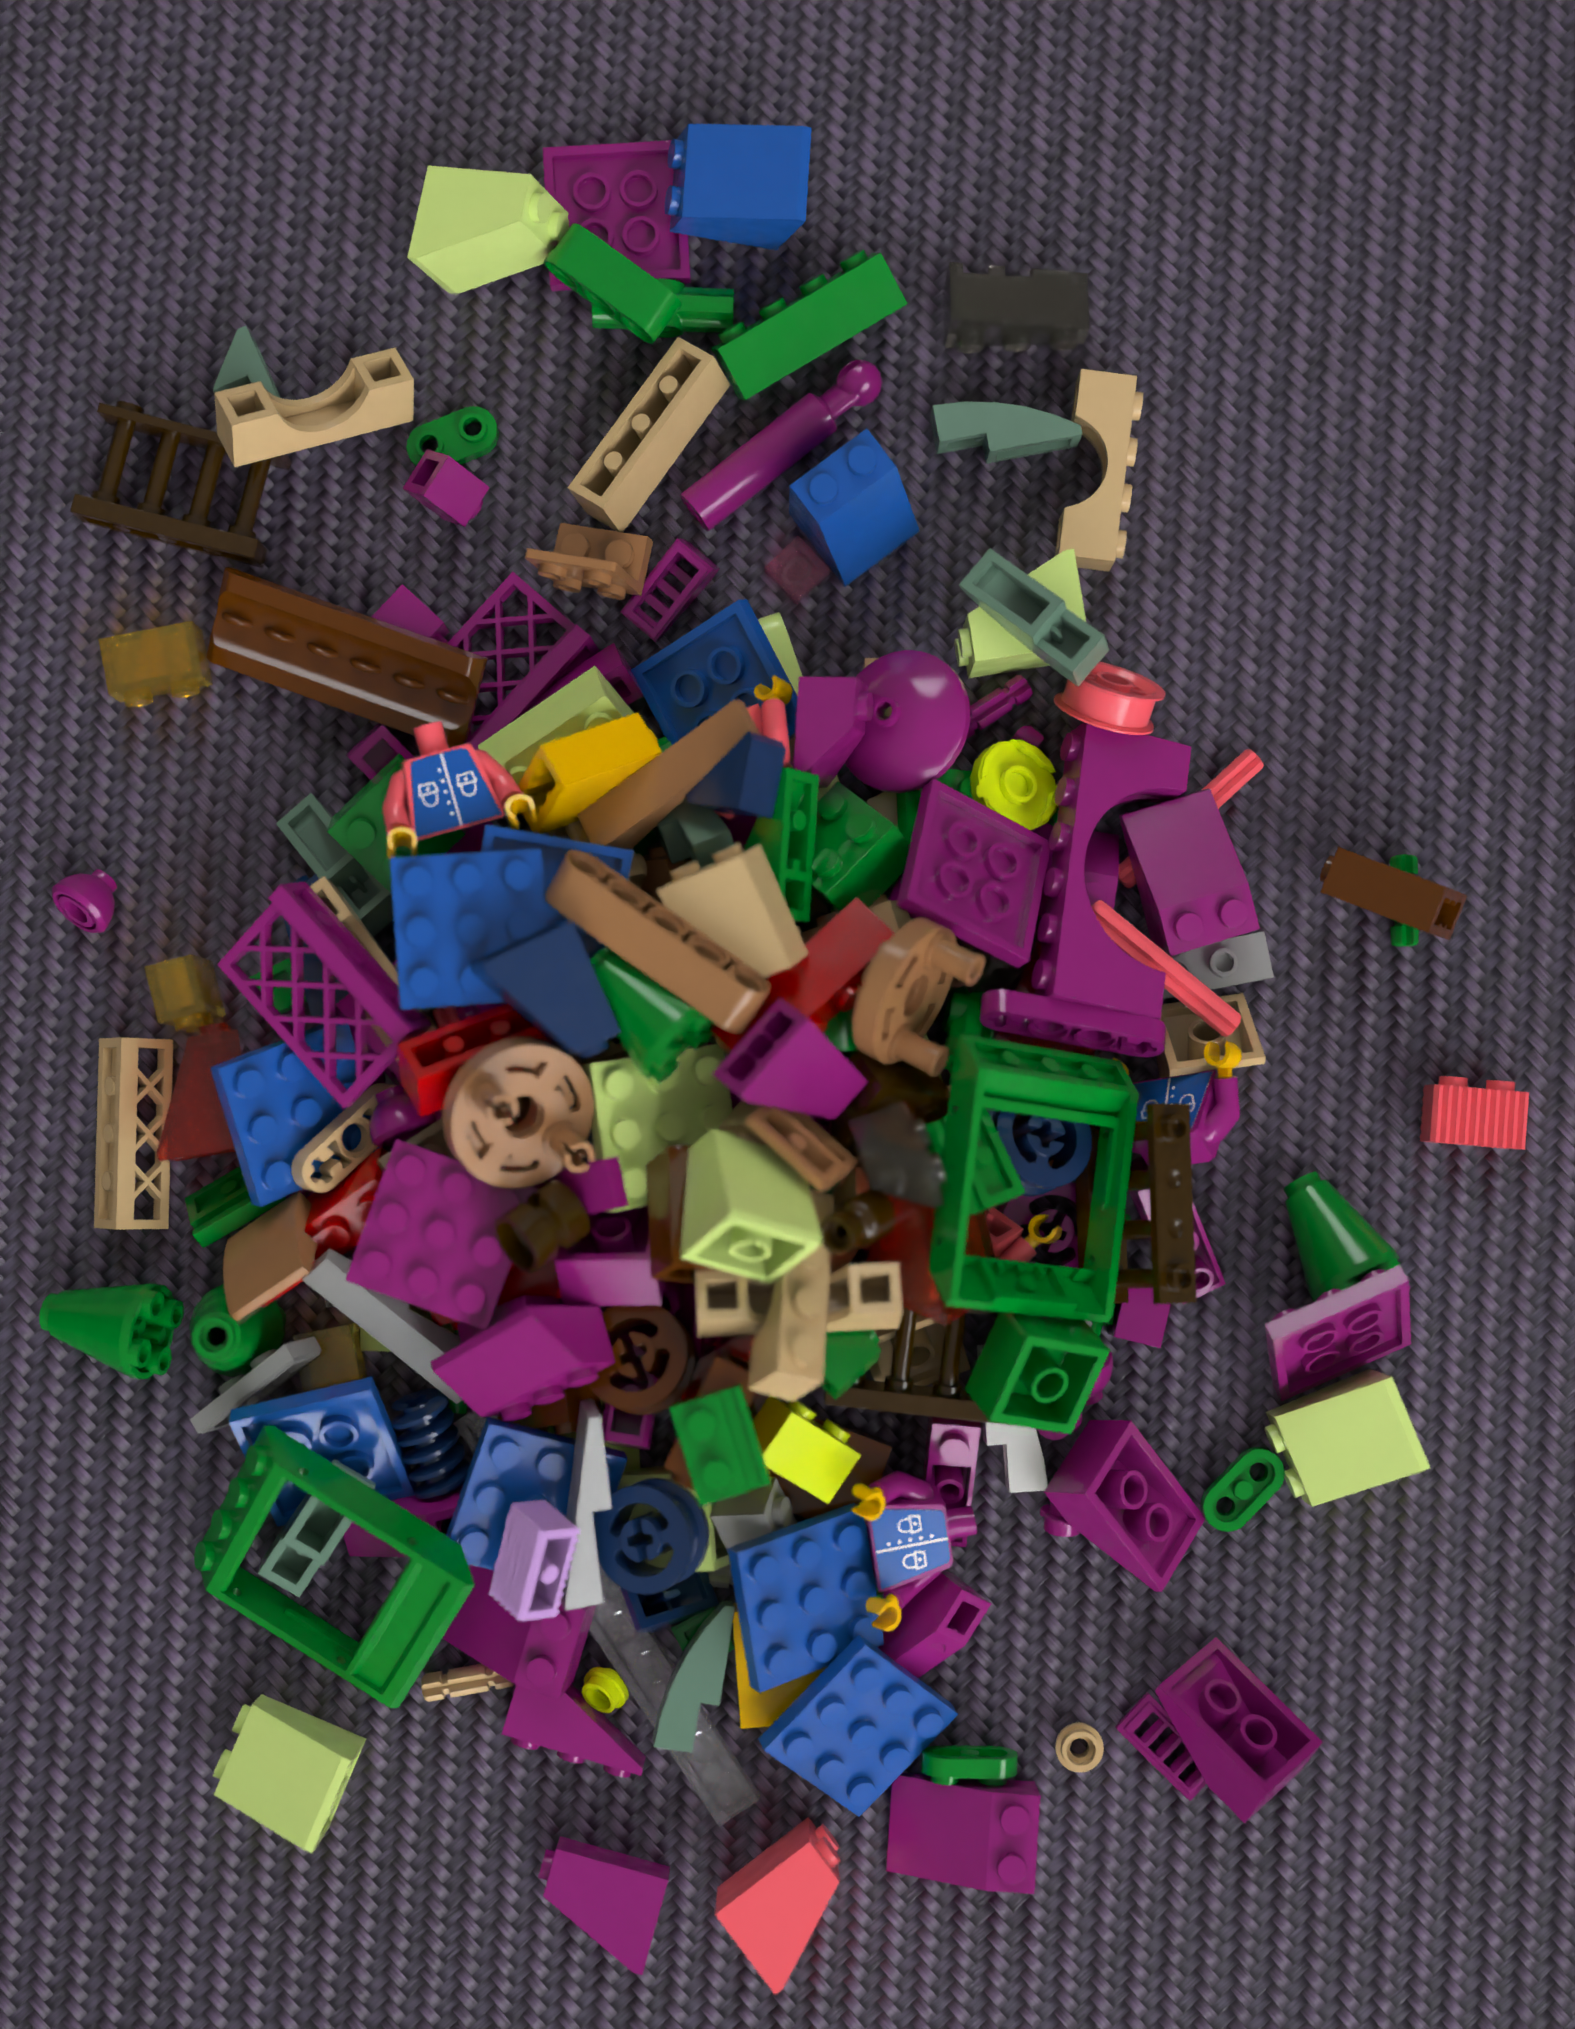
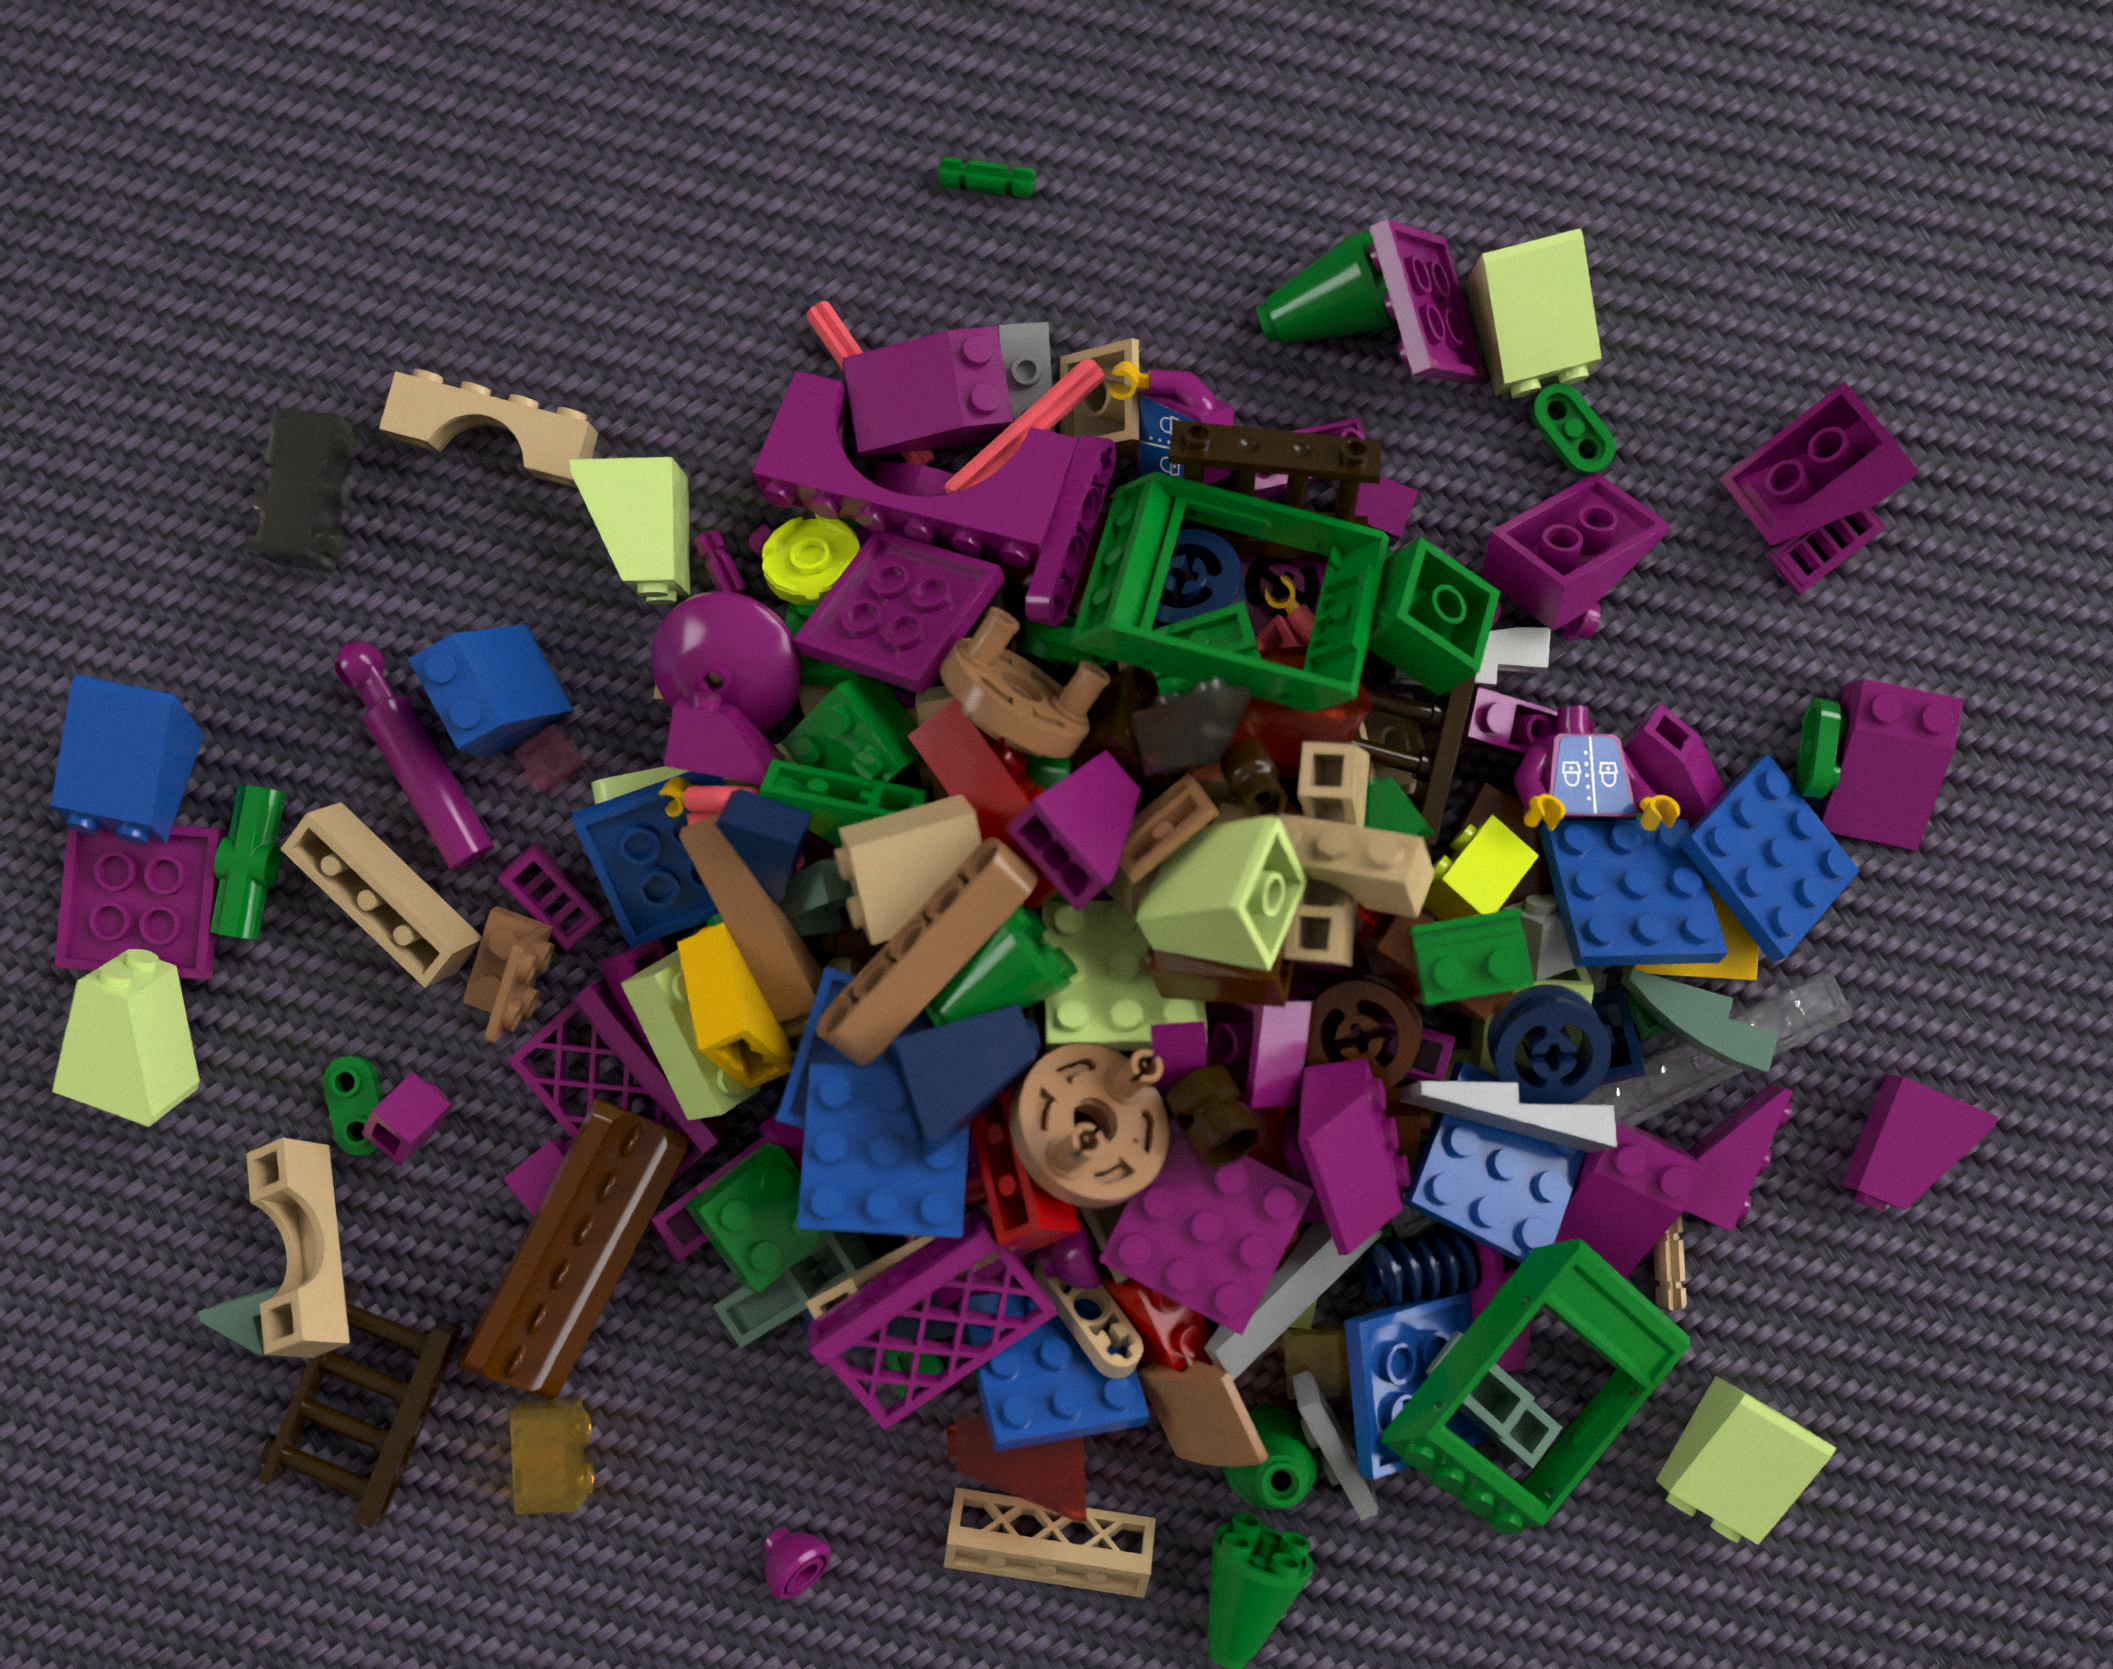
camera: 75 degrees left, 0 degrees up
(185, 992) = (908, 1468): clear yellow brick -> none
(222, 1208) = (1142, 1458): green plate -> none
(447, 791) = (734, 1157): torso -> none
(533, 1560) = (1561, 1172): lavender brick -> none
(604, 1689) = (1697, 1118): neon yellow plate -> none
(612, 283) = (211, 910): green beam -> none
(780, 1899) = (1938, 962): coral slope -> none
(809, 324) = (289, 709): green brick -> none
(1001, 429) = (431, 523): sand green slope -> none
(1035, 617) = (635, 508): sand green slope -> none
(1089, 1758) = (1828, 627): tan plate -> none
(1112, 700) = (731, 447): coral wheel -> none
(1392, 893) = (978, 183): reddish brown brick -> none
(1474, 1115) = (1219, 137): coral brick -> none

